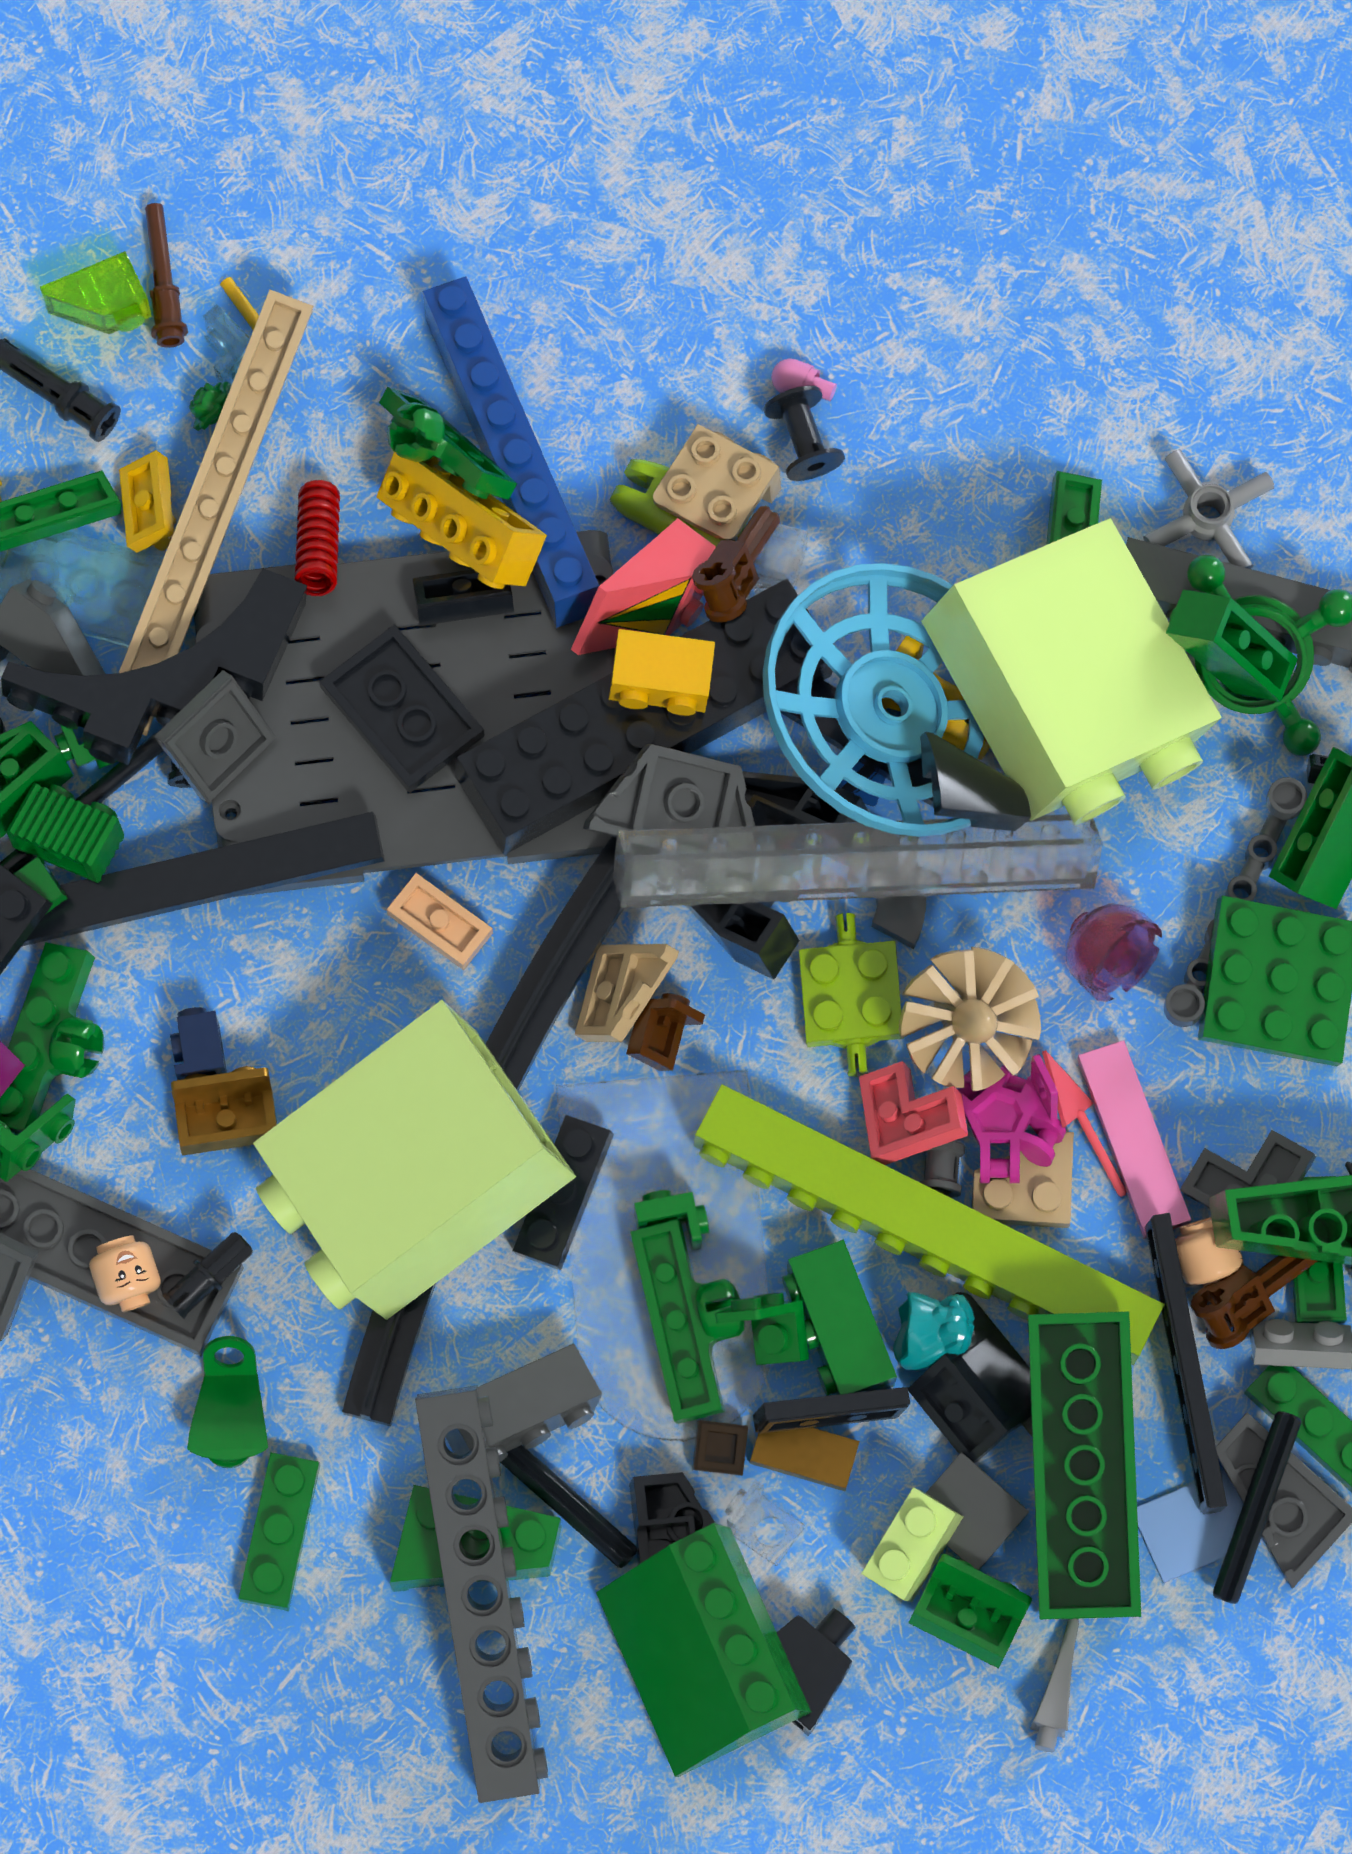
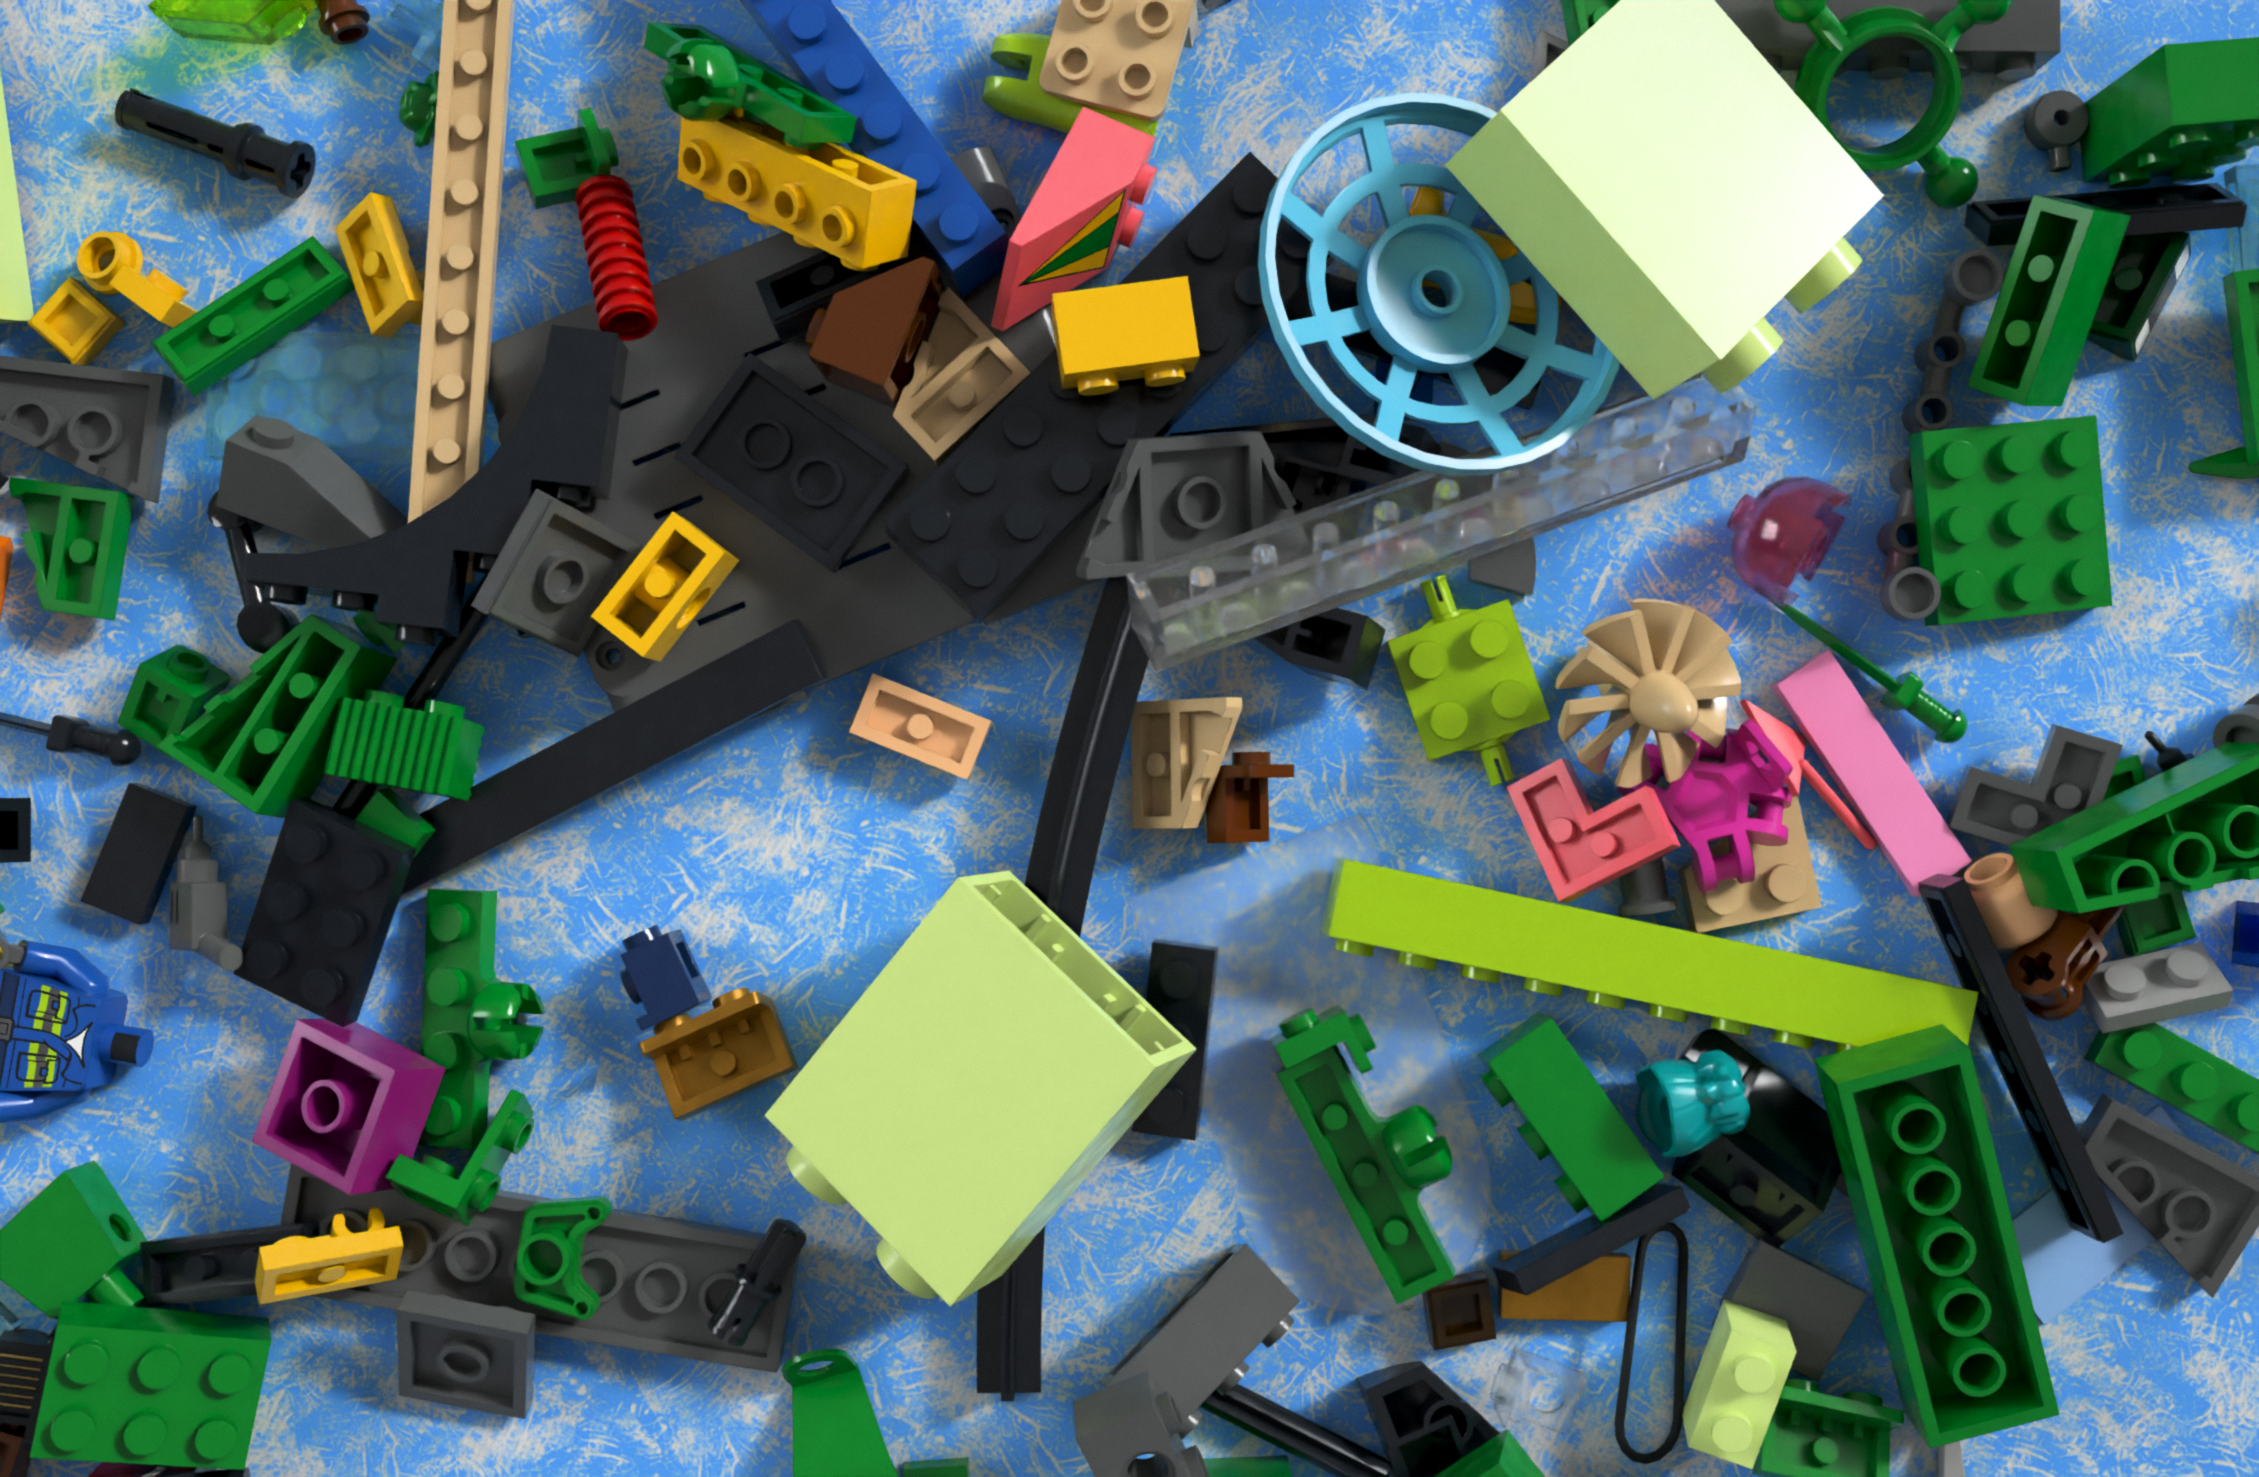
camera: 10 degrees left, 15 degrees up
(62, 1218) = (552, 1254): none -> green piece
(125, 1273) = (651, 1312): light nougat head -> none
(288, 766) = (665, 588): none -> yellow brick
(295, 464) = (564, 159): none -> green bracket
(490, 631) = (876, 330): none -> reddish brown slope
(534, 679) = (956, 380): none -> tan wing
(730, 569) = (1174, 162): reddish brown connector -> none
(776, 1327) = (1487, 1158): green bracket -> none
(781, 557) = (1219, 123): clear brick -> none
(840, 1503) = (1679, 1347): none -> black piece
(971, 788) = (1574, 382): black slope -> none
(1171, 1085) = (1902, 692): none -> green sword
(1231, 645) = (1869, 87): green brick -> none
(1256, 1507) = (2155, 1218): black axle -> none

